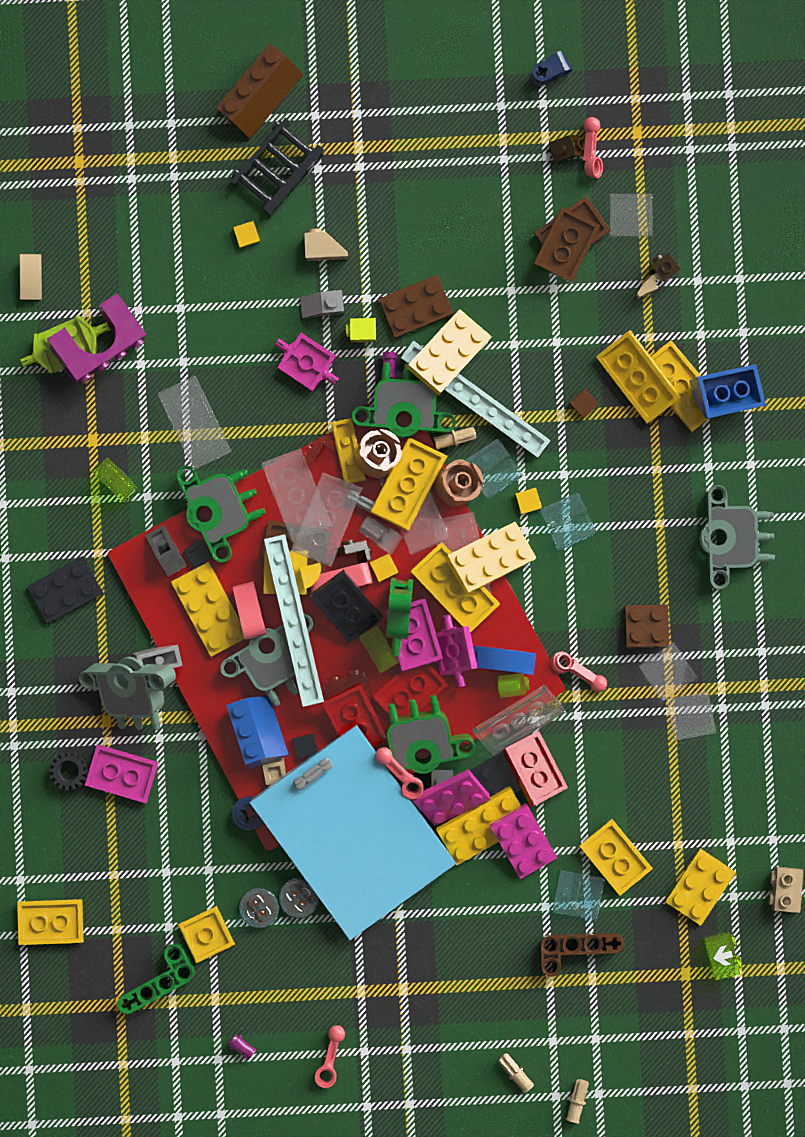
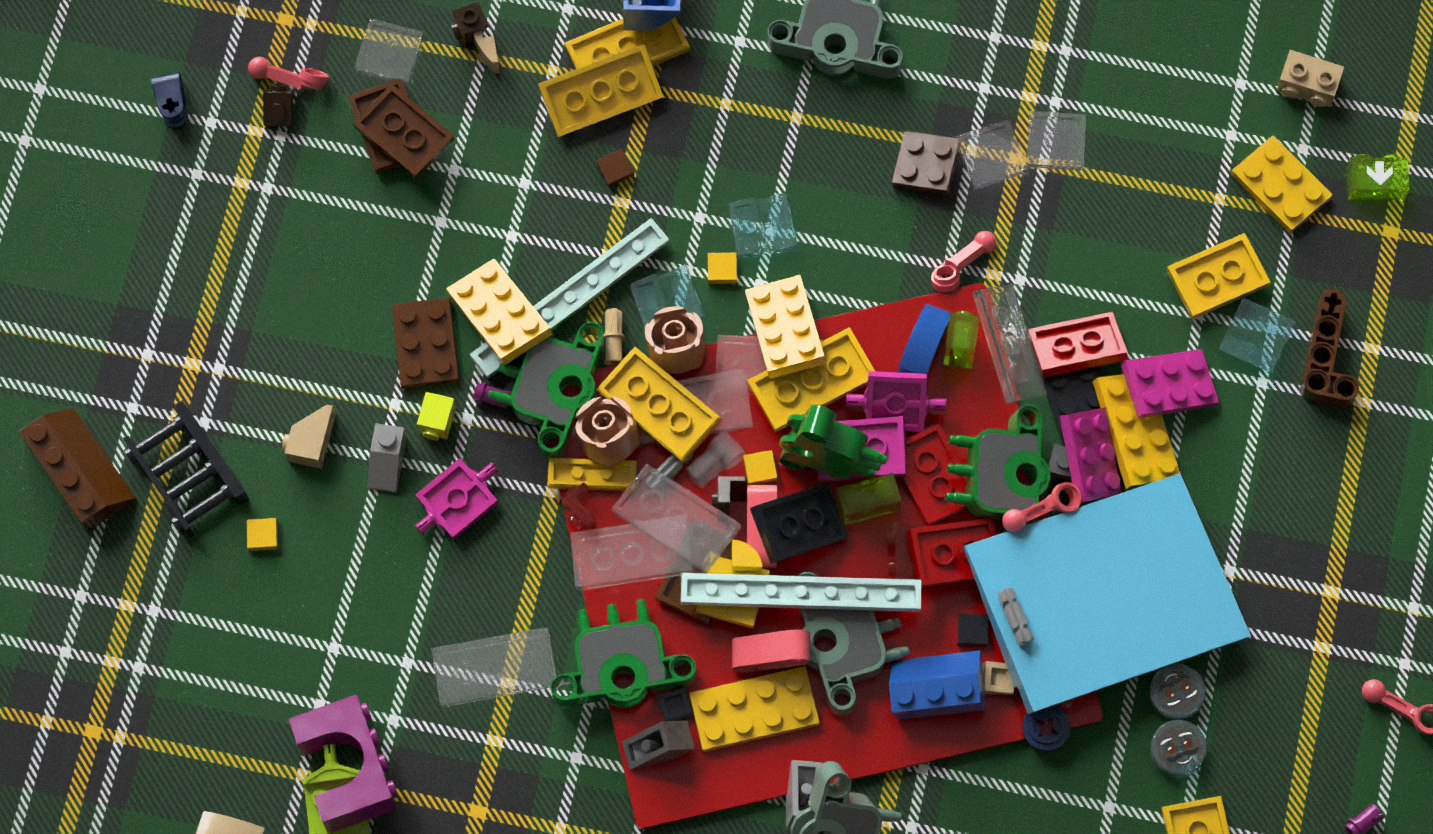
camera: 70 degrees left, 15 degrees down
(115, 480) = (543, 789): clear neon green brick -> none

